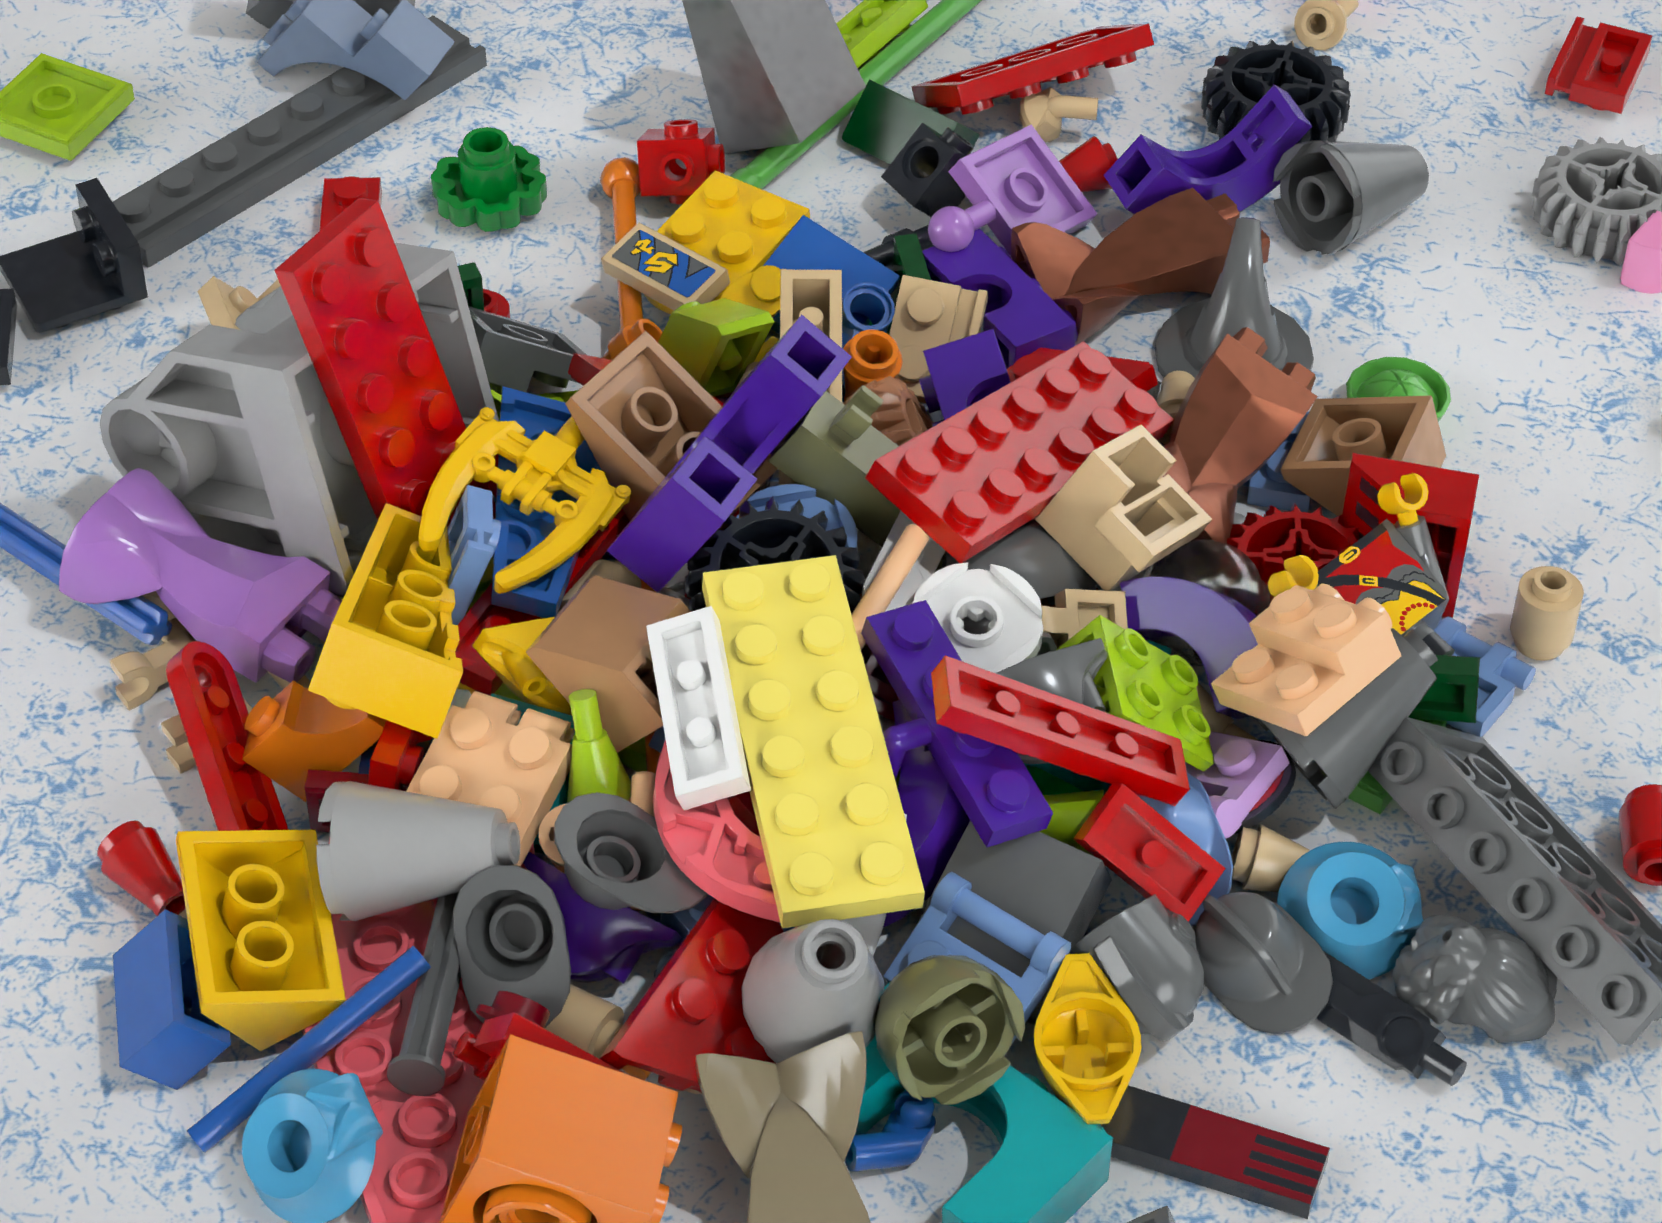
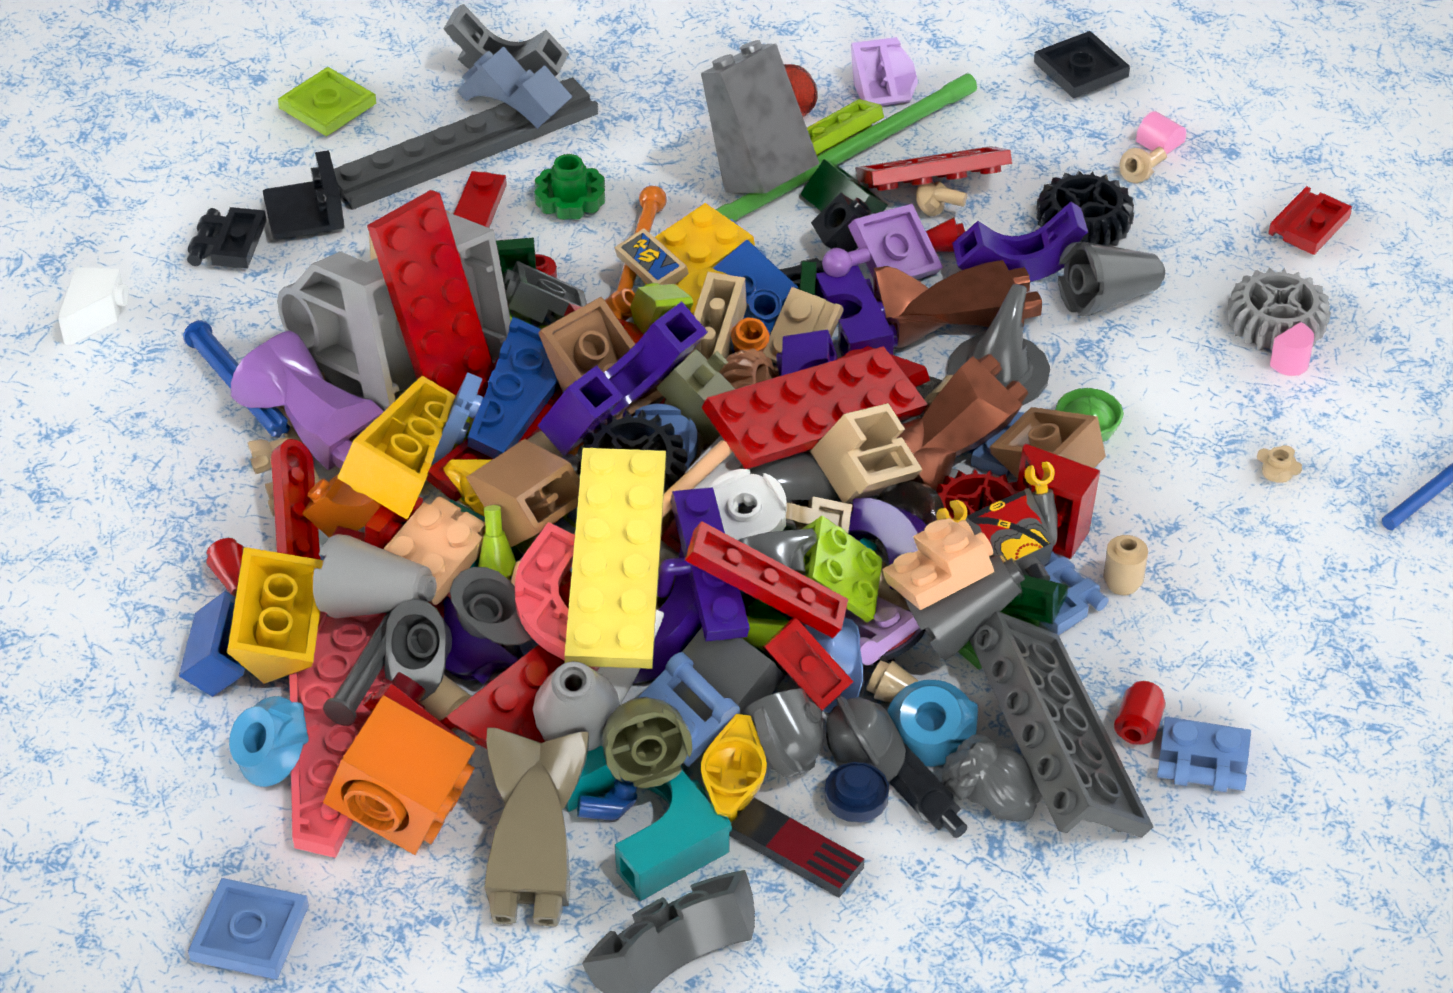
camera: 15 degrees right, 0 degrees up
(310, 1047) = (290, 683): blue bar -> none
(541, 470) = (518, 369): yellow bar -> none
(677, 159) = (687, 190): red brick -> none
(698, 708) = (552, 527): white plate -> none
(1278, 1043) = (856, 792): none -> dark blue plate

